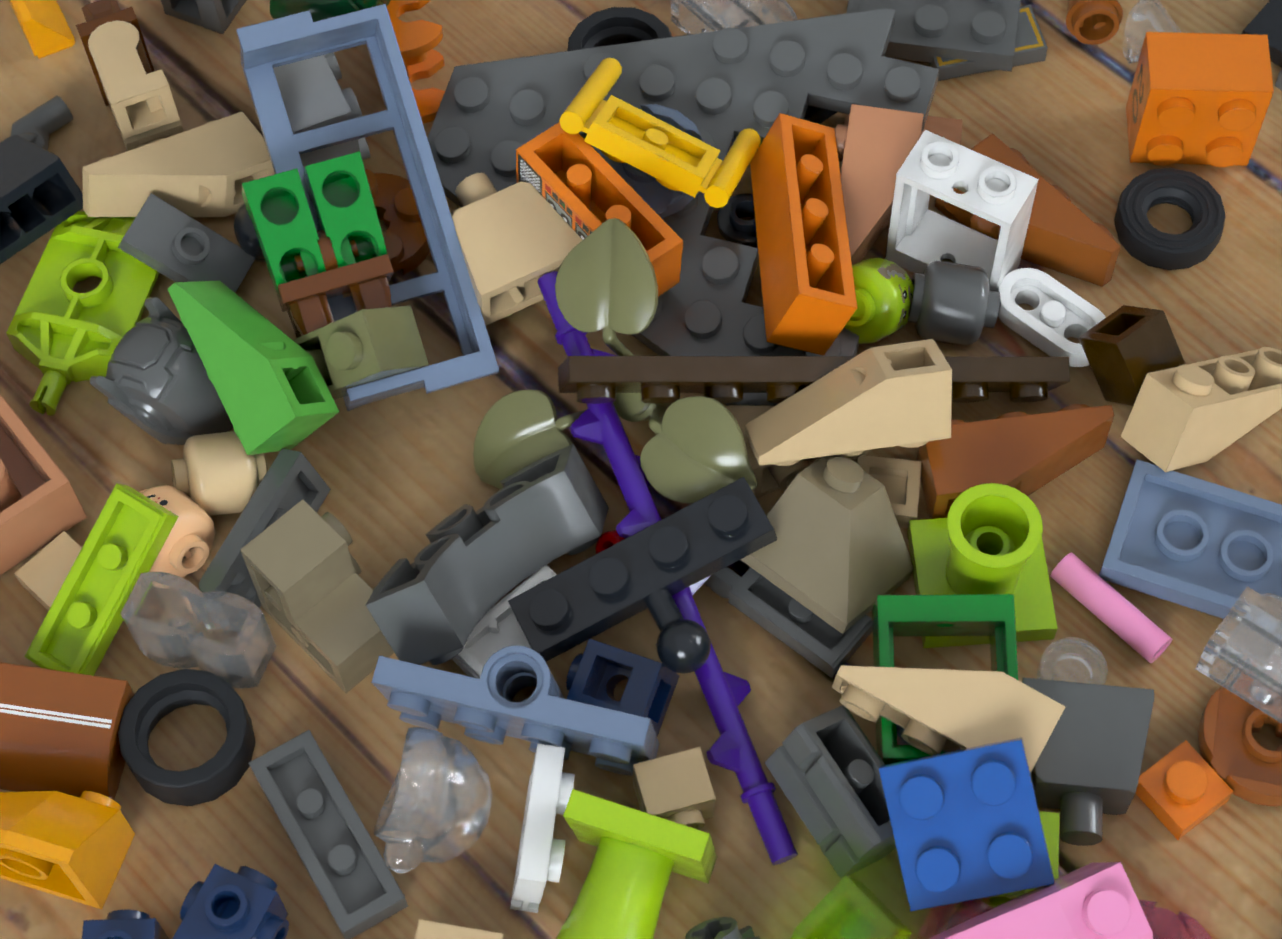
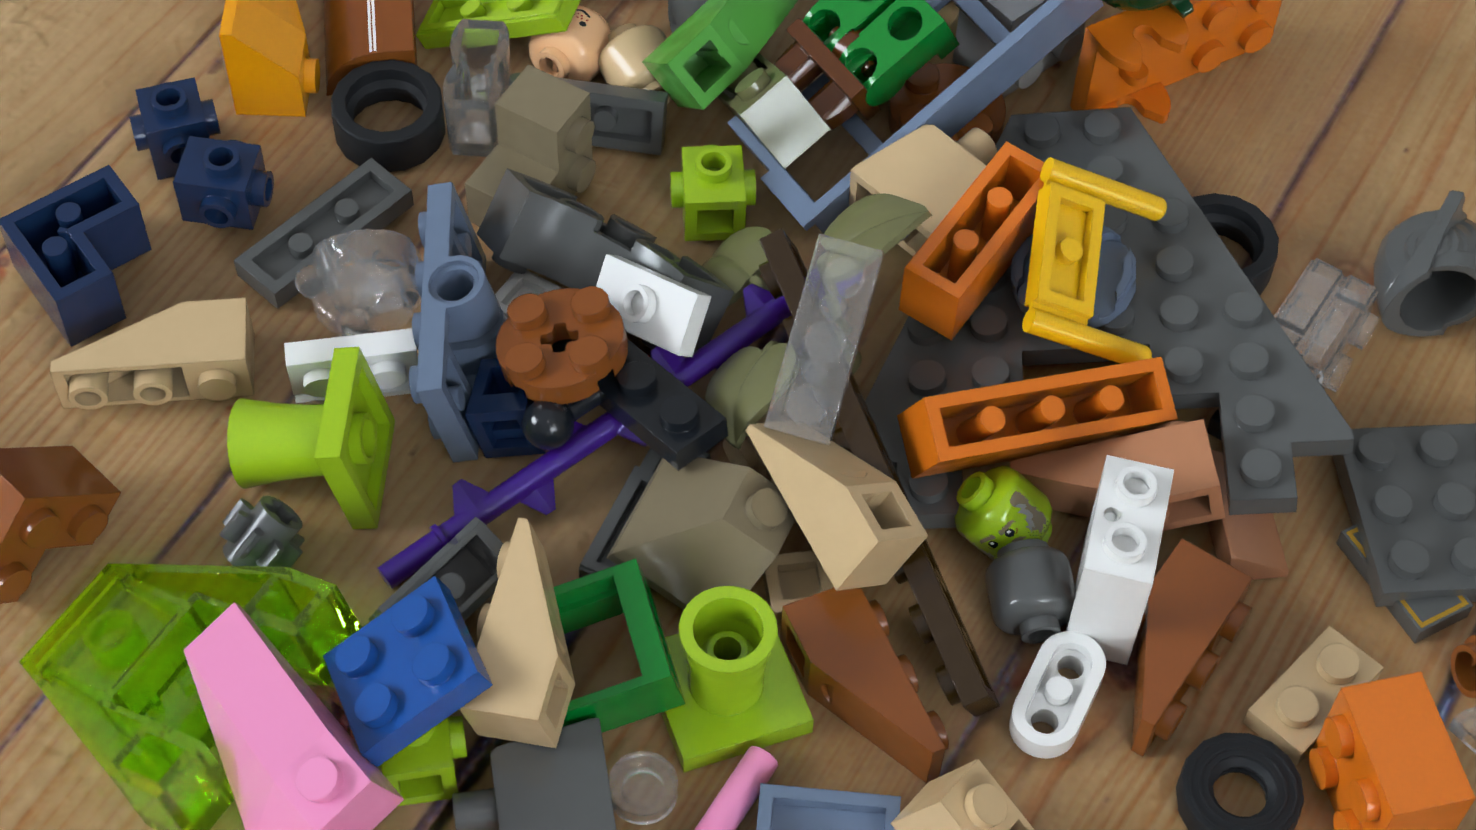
camera: 70 degrees right, 5 degrees down
(418, 442) = (713, 191): none -> lime brick
(575, 517) = (654, 305): none -> white plate
(589, 570) = (556, 315): none -> dark orange plate
(676, 788) = (417, 467): tan plate -> none
(719, 351) = (824, 339): none -> clear plate
(1084, 140) = (1302, 697): none -> tan plate
(1127, 348) = (1029, 761): dark brown brick -> none

